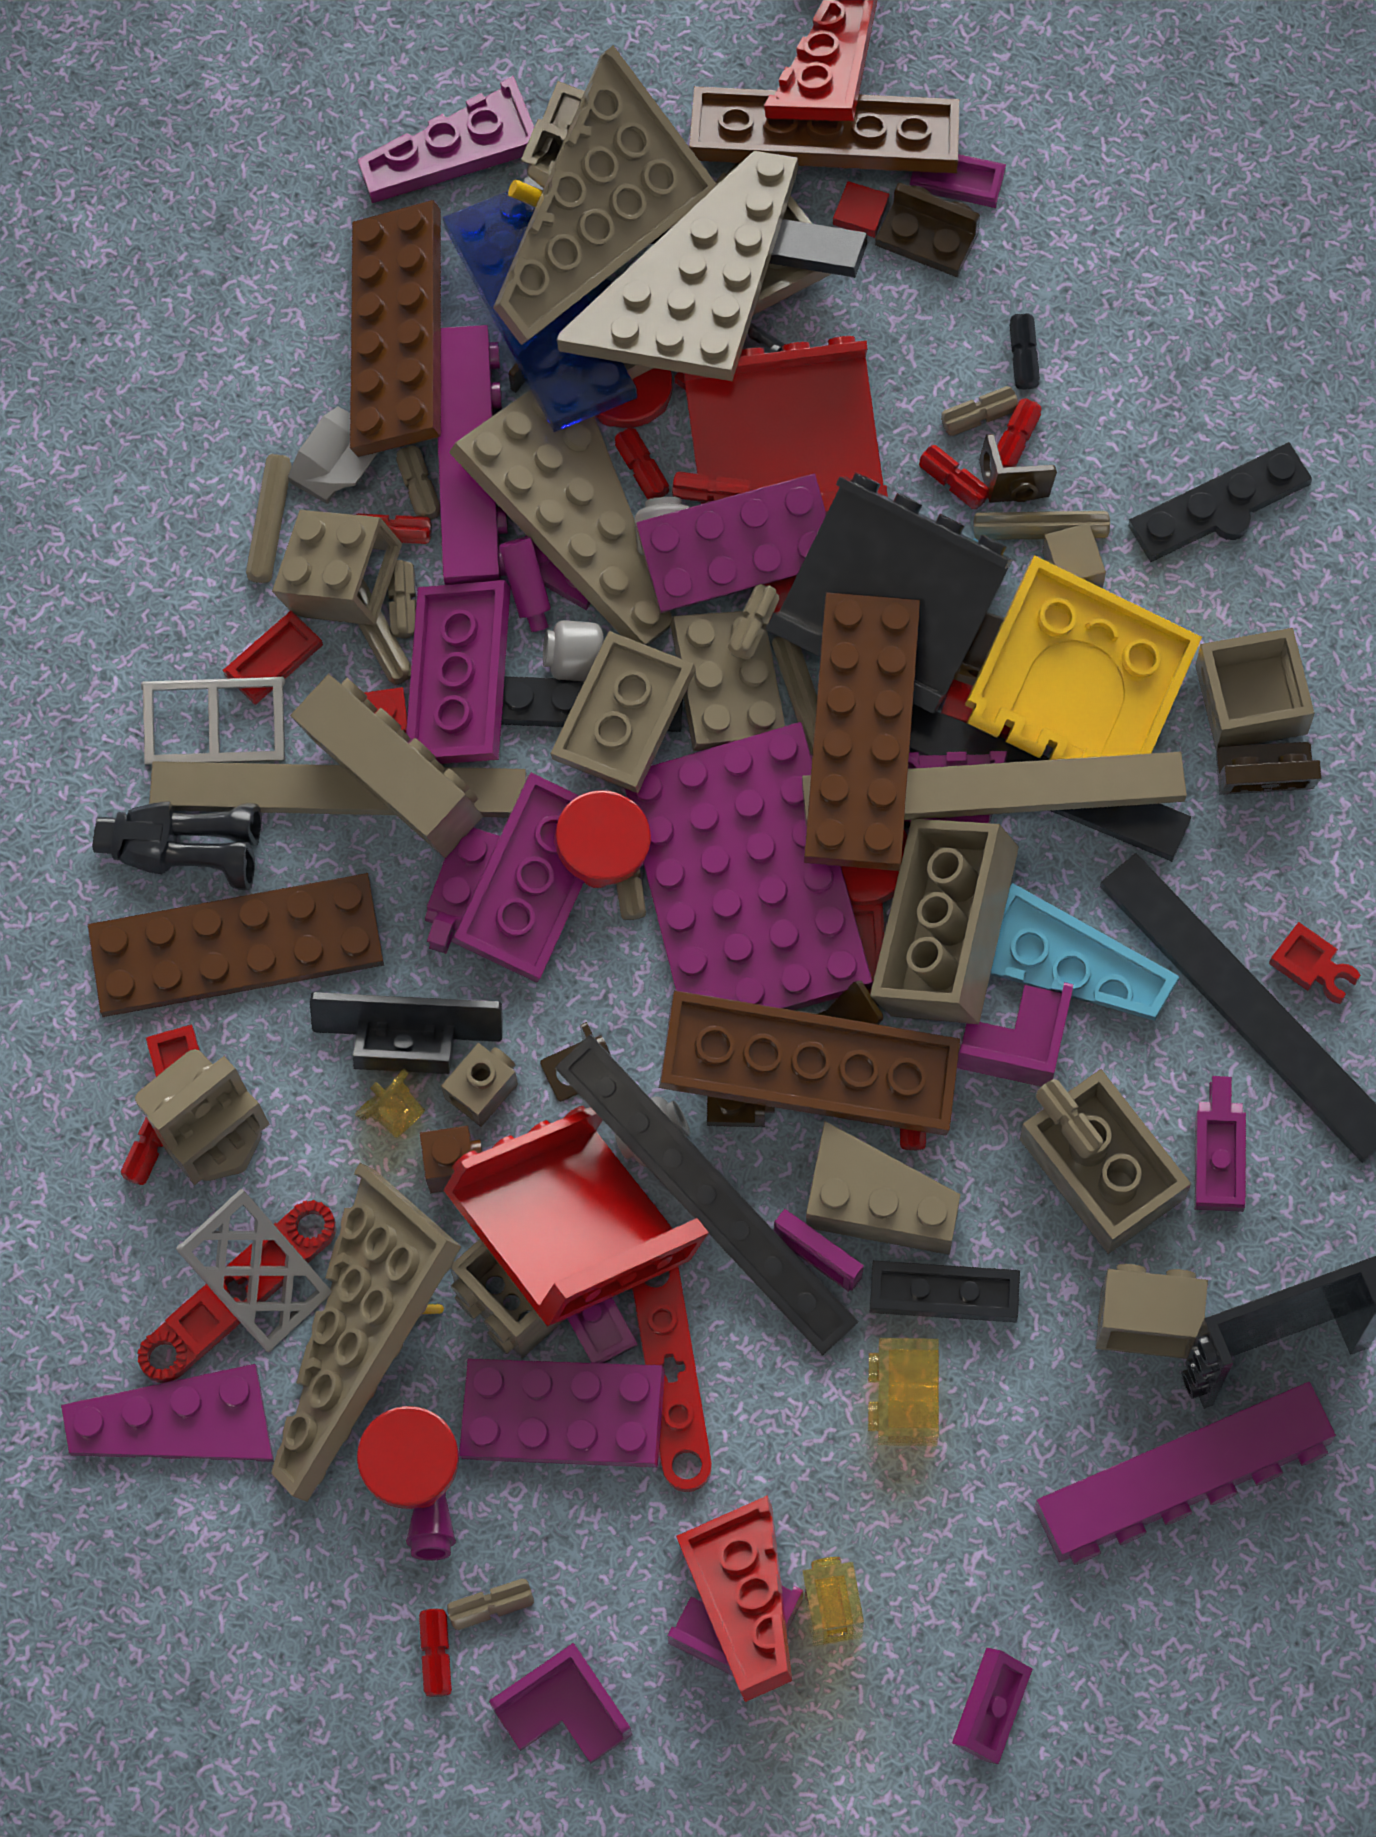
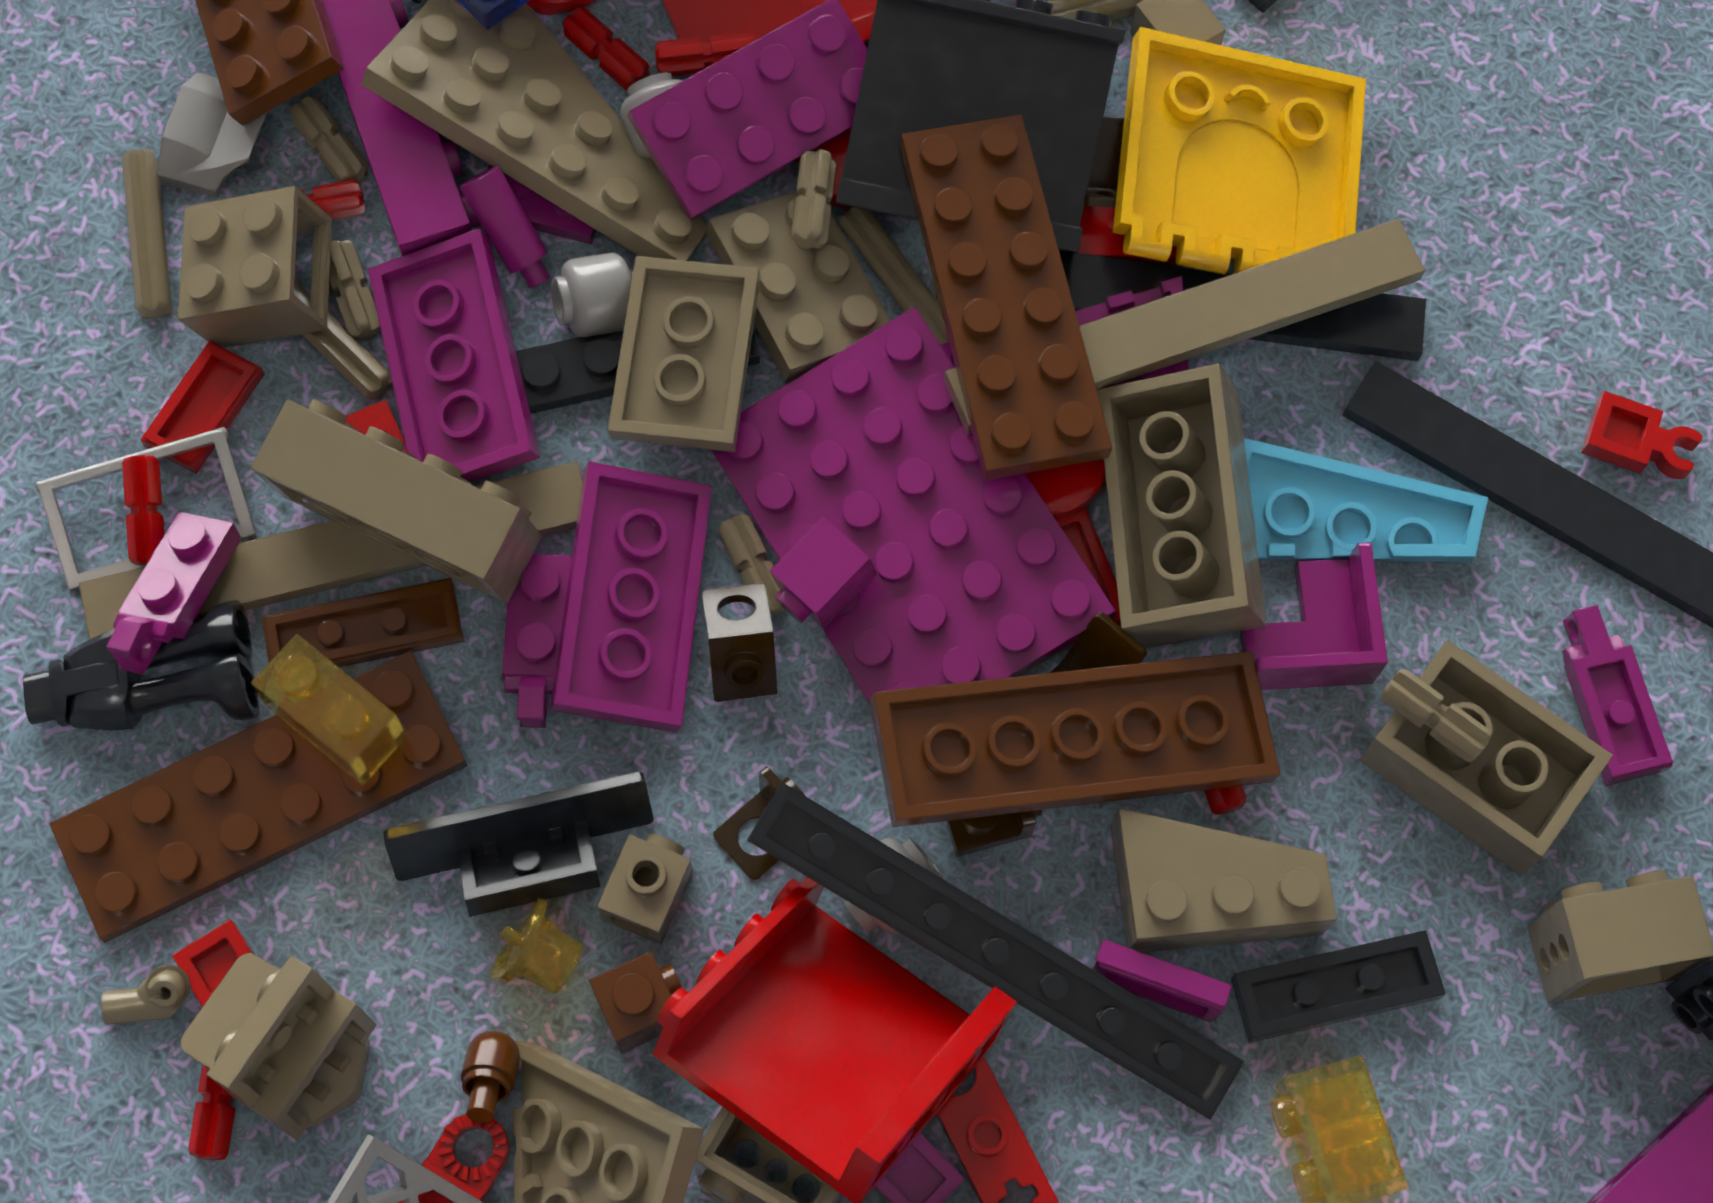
camera: 25 degrees left, 0 degrees up
(125, 1064) = (154, 998): none -> dark tan arm
(213, 712) = (142, 496): none -> red piece
(215, 783) = (171, 588): none -> magenta hinge
(298, 898) = (329, 709): none -> clear yellow brick
(335, 1178) = (489, 1073): none -> reddish brown cylinder
(339, 848) = (372, 624): none -> reddish brown tile
(598, 936) = (740, 649): none -> dark brown bracket
(602, 838) = (709, 520): red tile -> none
(668, 898) = (821, 574): none -> magenta brick
(1254, 688) = (1443, 130): dark tan piece -> none
(1266, 768) = (1497, 216): dark brown bracket -> none

